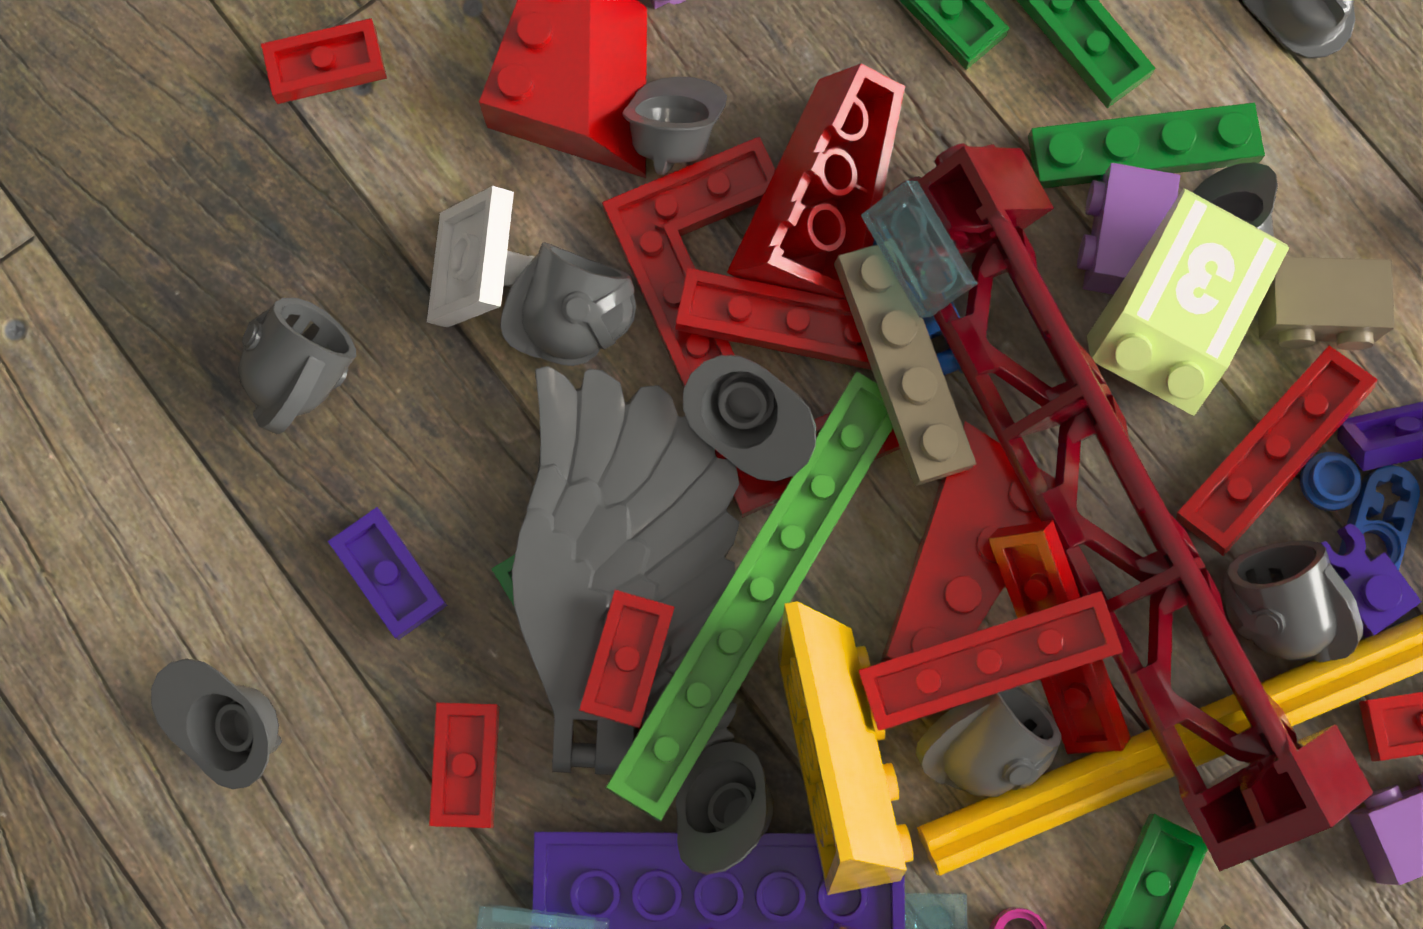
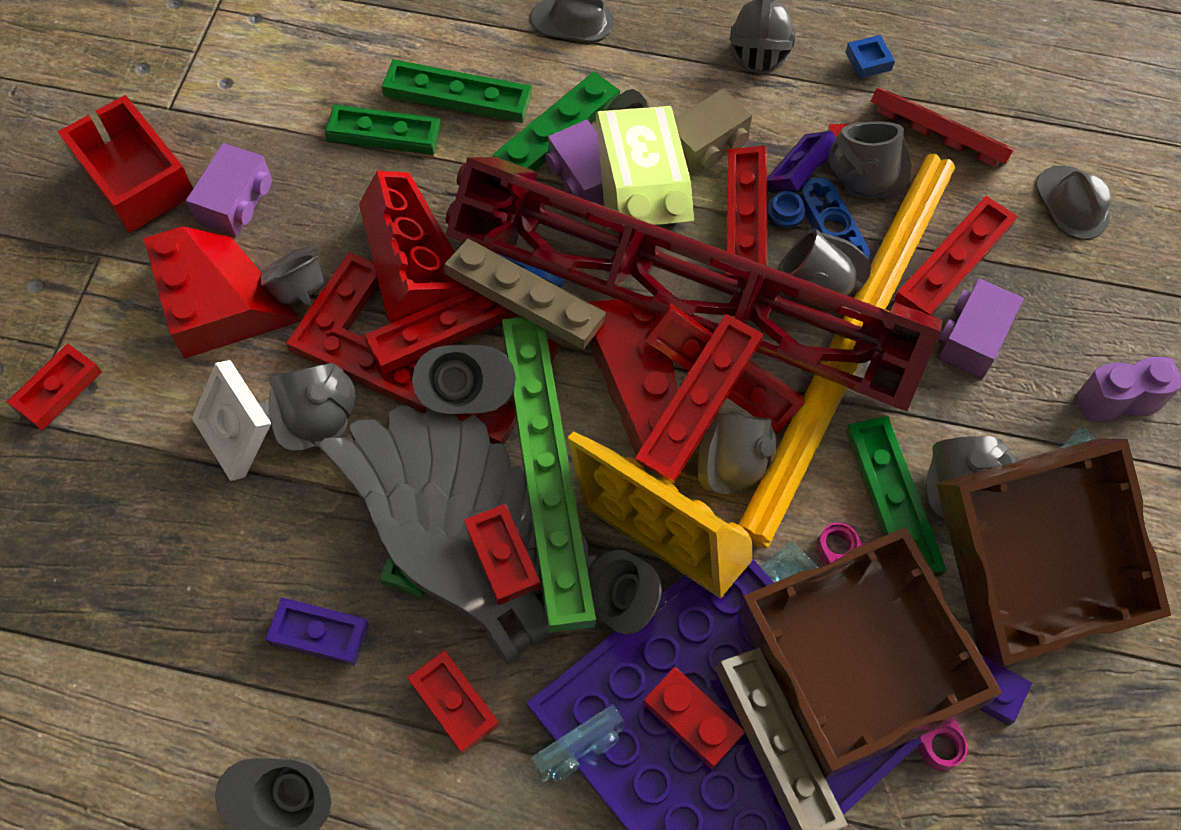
camera: 40 degrees left, 15 degrees down
(291, 371) = (162, 555): dark grey helmet -> none
(918, 249) = (485, 227): clear light blue plate -> none
(1375, 583) = (857, 232): dark purple plate -> none

